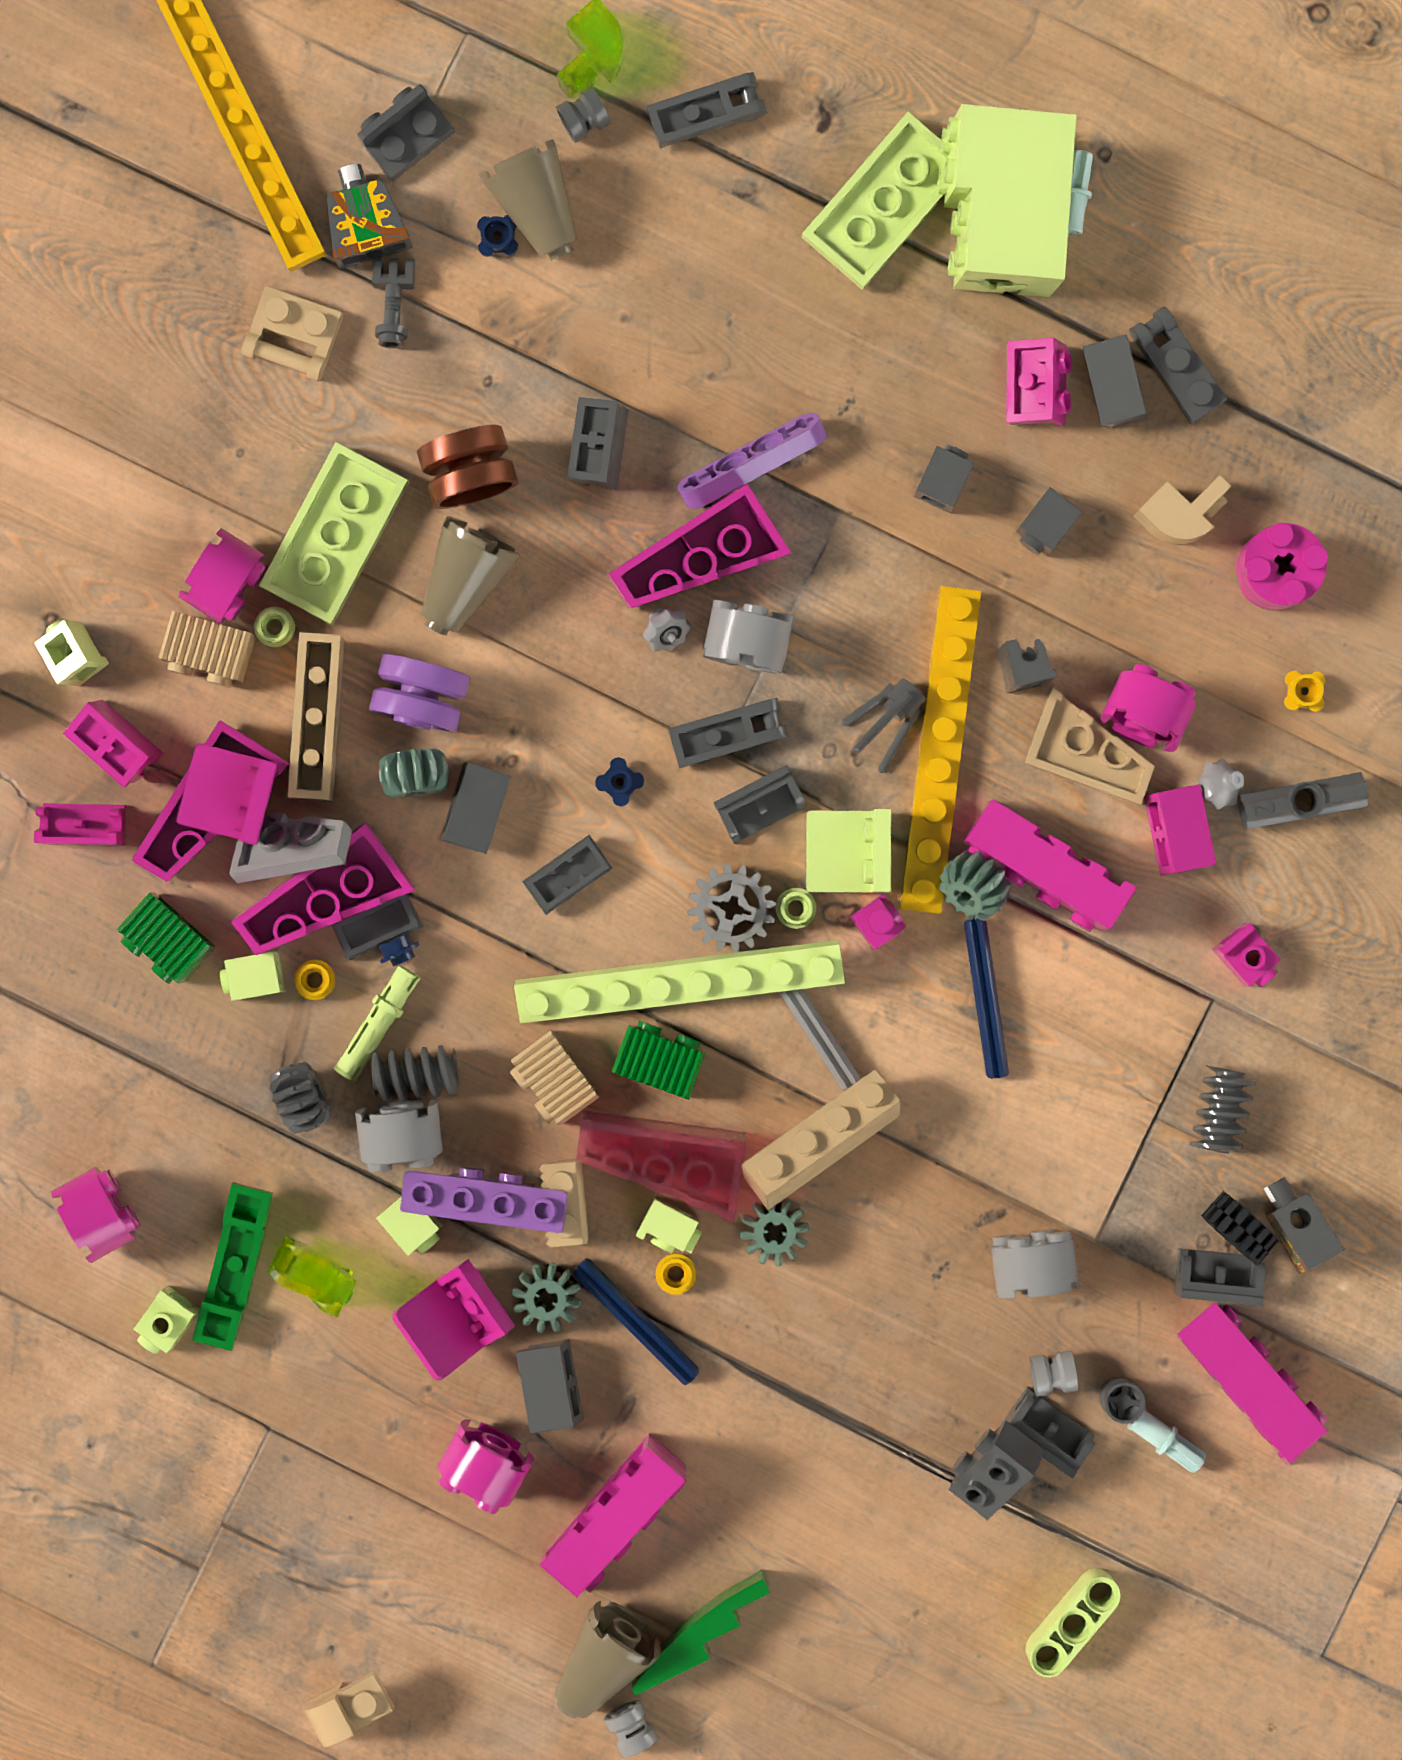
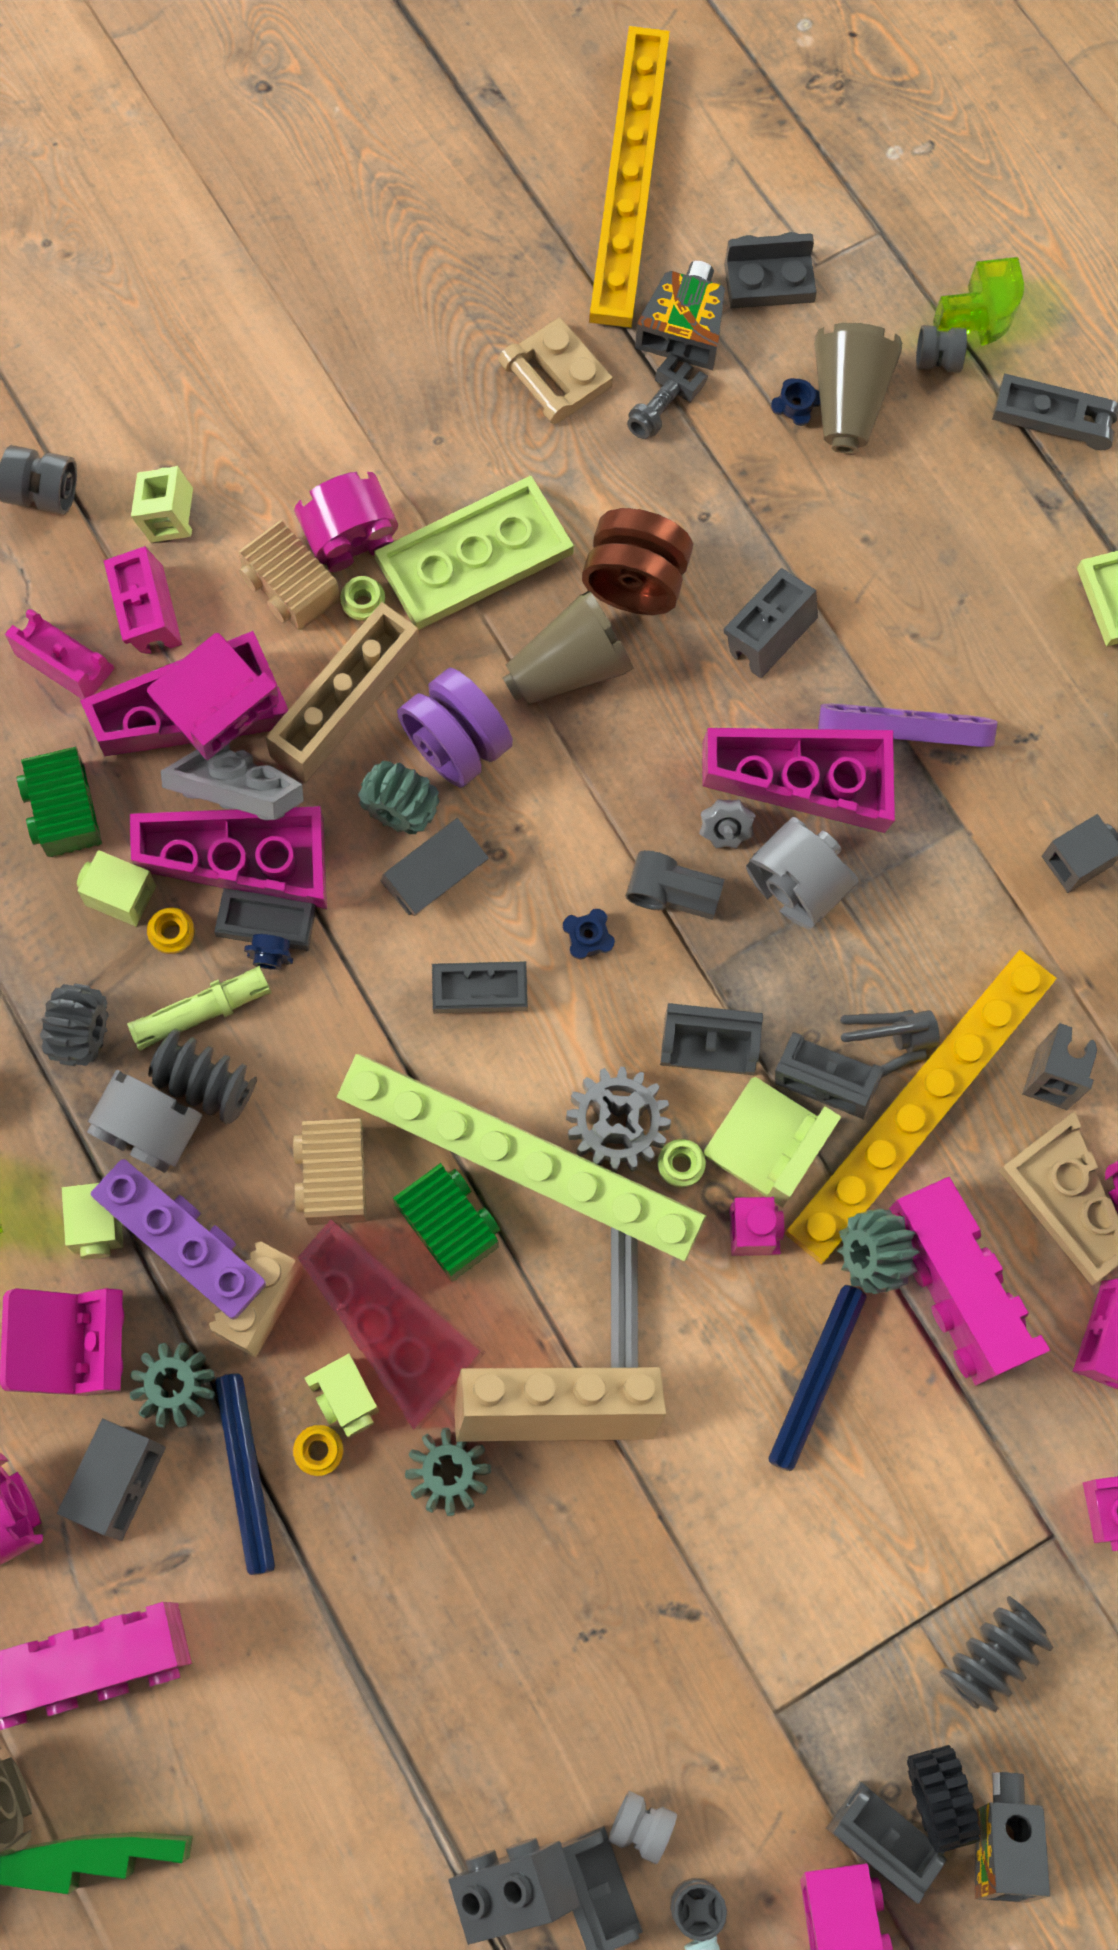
camera: 30 degrees right, 15 degrees down
(650, 707) = (662, 883): none -> dark grey piece
(726, 733) = (722, 954): dark grey plate -> none
(860, 774) = (827, 1076): none -> dark grey hinge
(1034, 1264) = (698, 1686): light grey brick -> none

